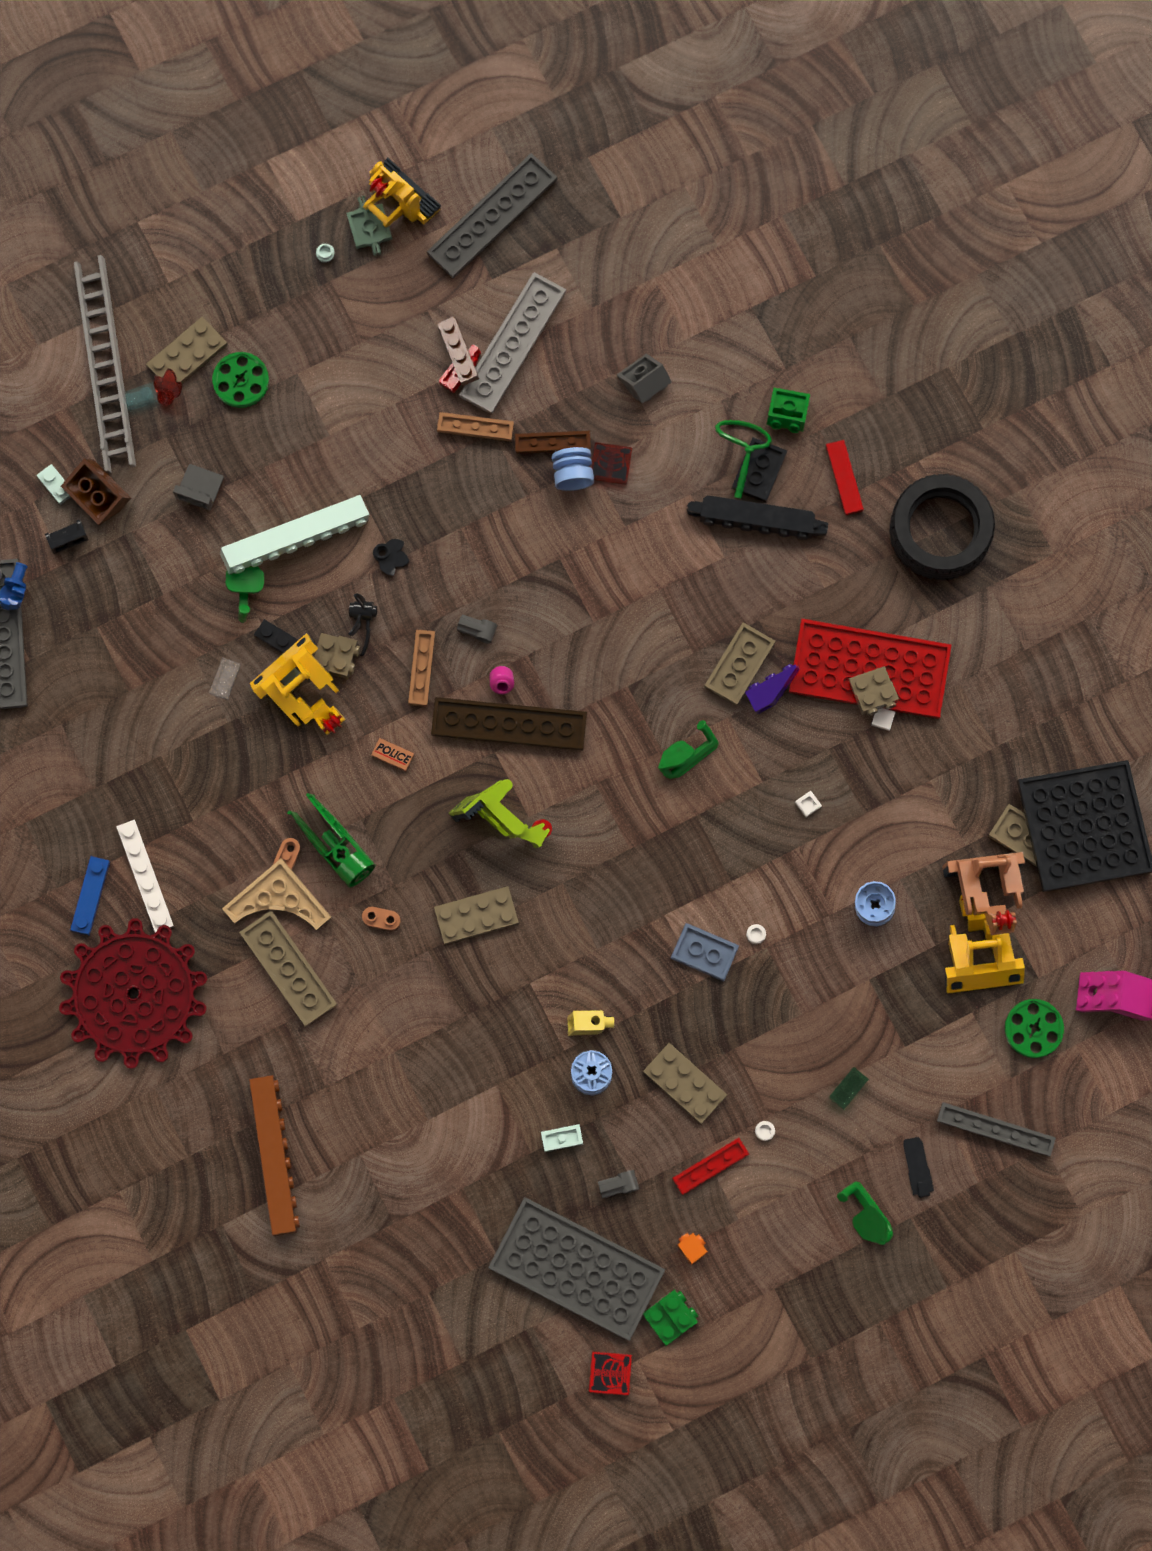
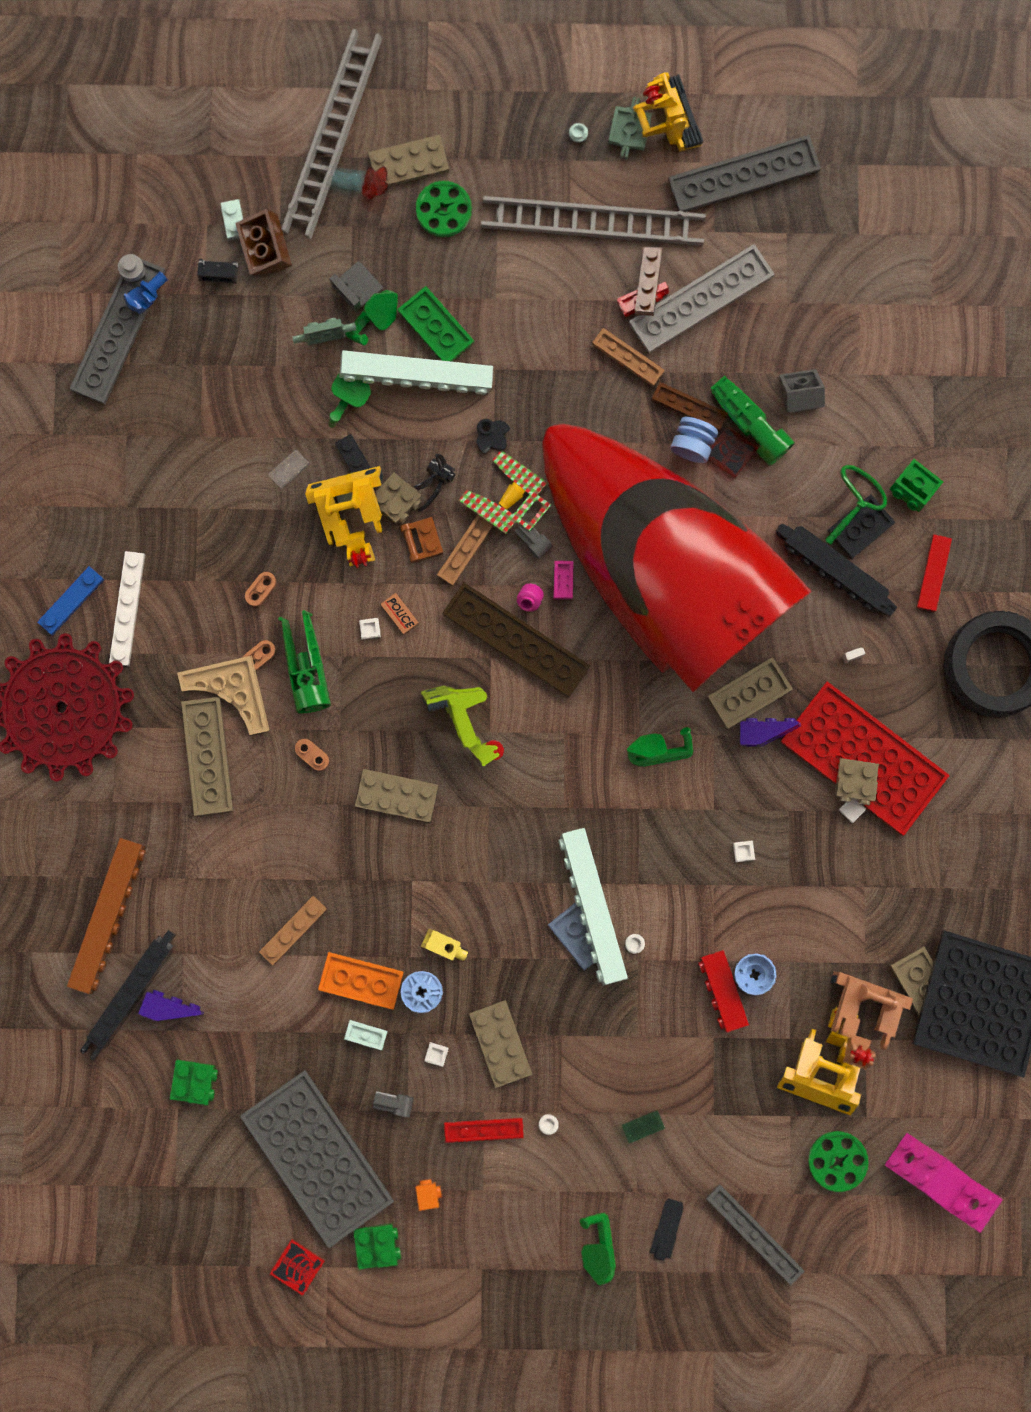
camera: 25 degrees right, 5 degrees up
(188, 544) = (323, 332): none -> sand green plate
(231, 497) = (380, 310): none -> green piece
(255, 797) = (260, 589): none -> nougat plate
(289, 485) = (435, 325): none -> green plate
(332, 1212) = (129, 994): none -> black hinge
(367, 1211) = (162, 1008): none -> dark purple slope
(373, 781) = (369, 628): none -> white tile
(375, 312) = (592, 232): none -> light grey ladder
(381, 675) = (428, 539): none -> dark orange plate
(430, 1261) = (193, 1082): none -> green plate
(436, 622) = (500, 516): none -> piece
(437, 600) = (511, 495): none -> yellow cone
(447, 1081) = (293, 930): none -> medium nougat plate
(522, 650) = (563, 580): none -> dark pink plate
(532, 1093) = (361, 980): none -> orange plate
(600, 580) = (665, 554): none -> red piece
(614, 426) = (752, 421): none -> green piece
(633, 1122) = (436, 1054): none -> white tile
(702, 919) = (593, 906): none -> light aqua brick
(812, 584) = (852, 655): none -> white tile
(855, 933) = (724, 991): none -> red brick

